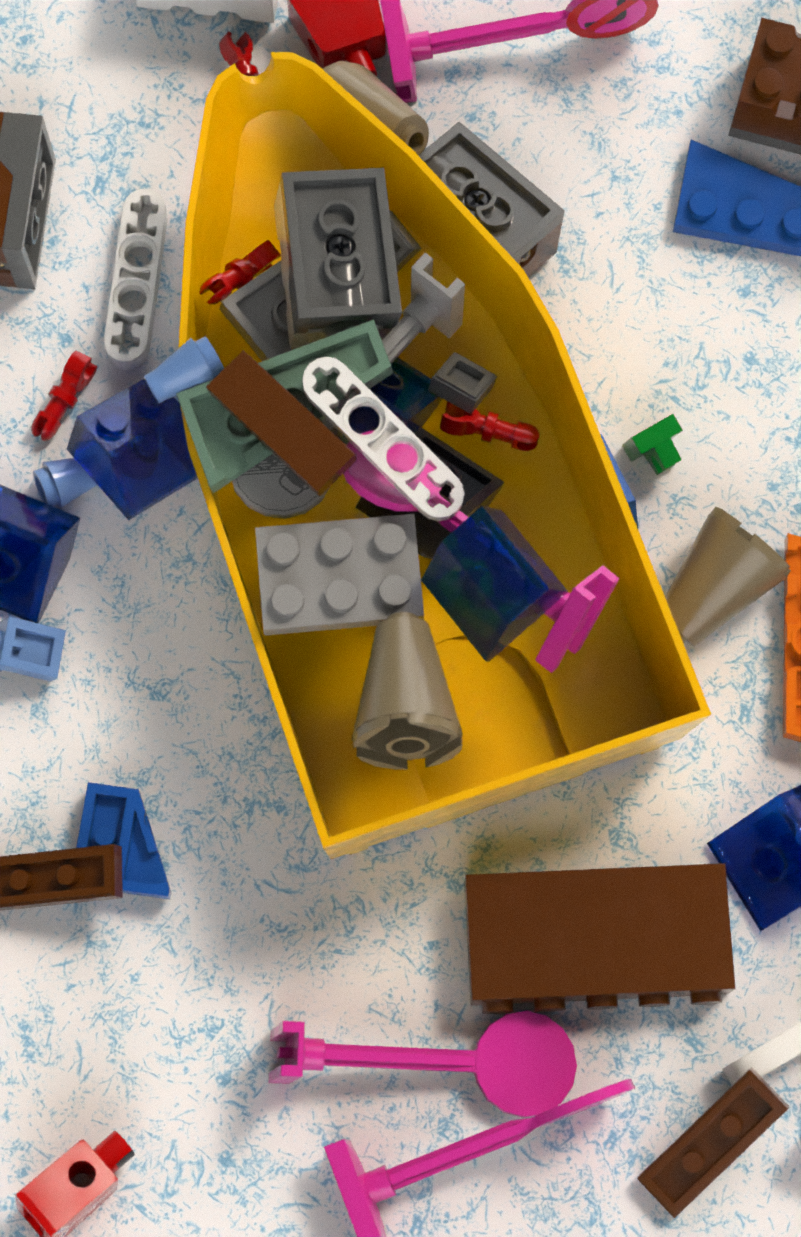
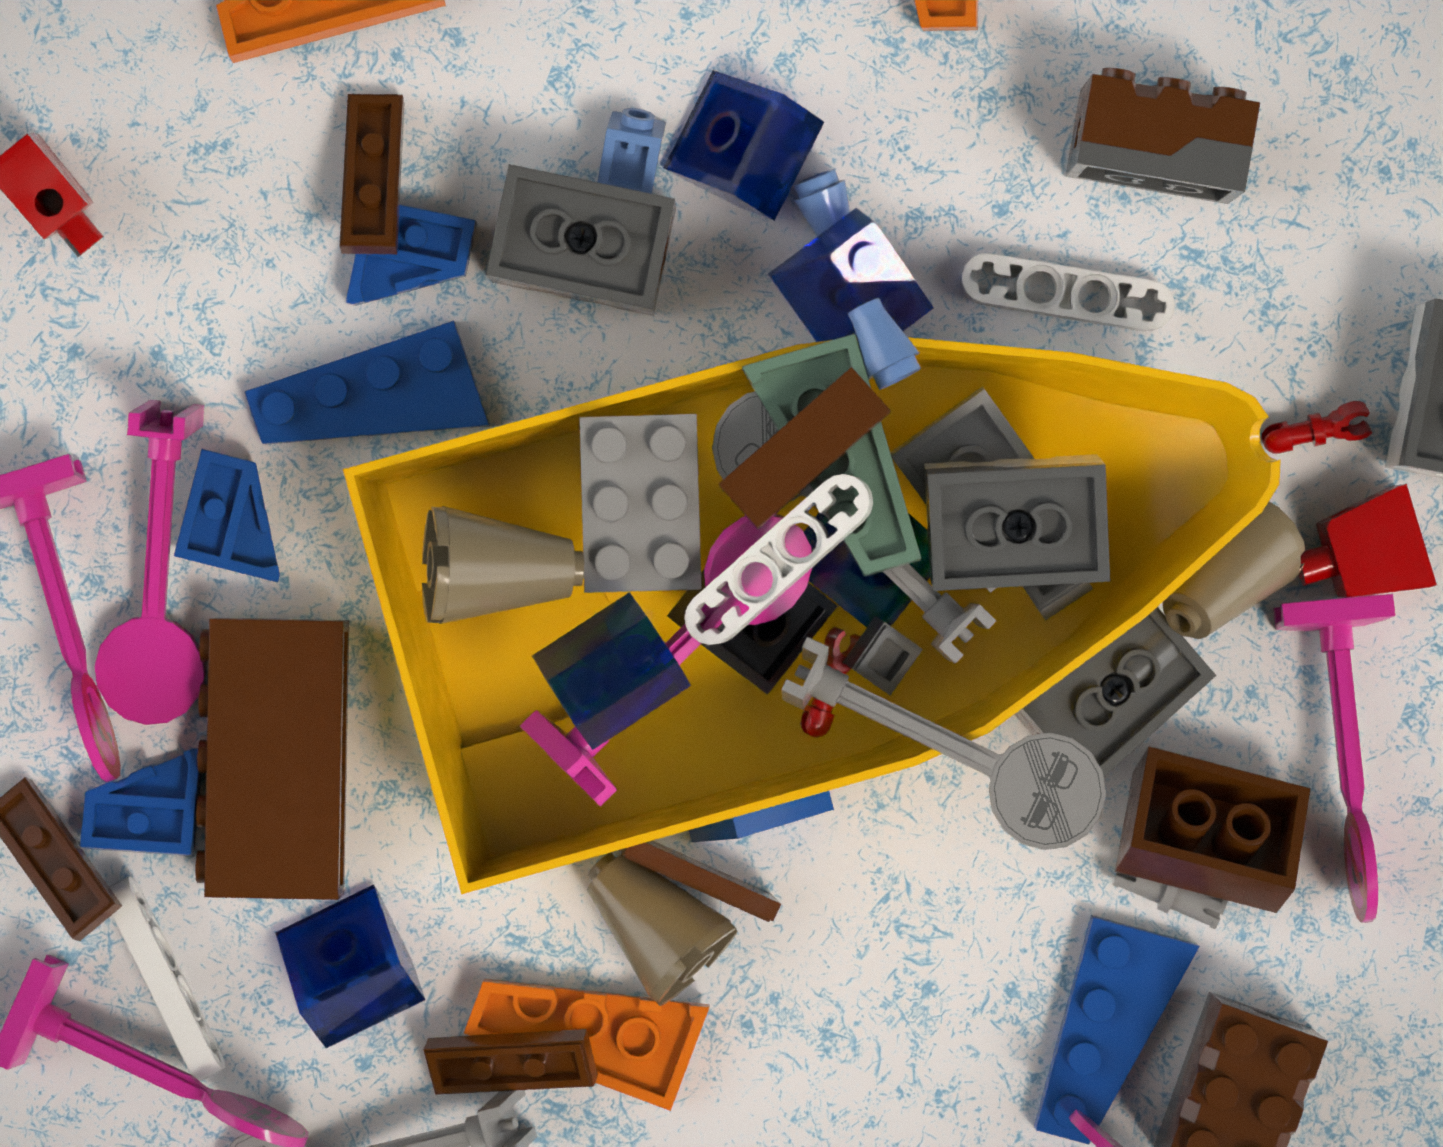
camera: 95 degrees right, 15 degrees up
(75, 376) = (948, 218): red piece -> none
(102, 678) = (581, 239): none -> dark grey piece
(240, 272) = (1022, 412): red piece -> none
(249, 860) = (385, 390): none -> blue wing
(377, 998) = (227, 518): none -> blue wing
(567, 219) = (1040, 789): none -> light grey piece
(591, 123) = (1213, 830): none -> reddish brown brick
(645, 164) = (1192, 904): none -> light grey pin
(656, 444) = (826, 869): green tile -> none
(659, 1056) = (146, 810): none -> blue wing
(678, 528) = (704, 879): none -> reddish brown tile

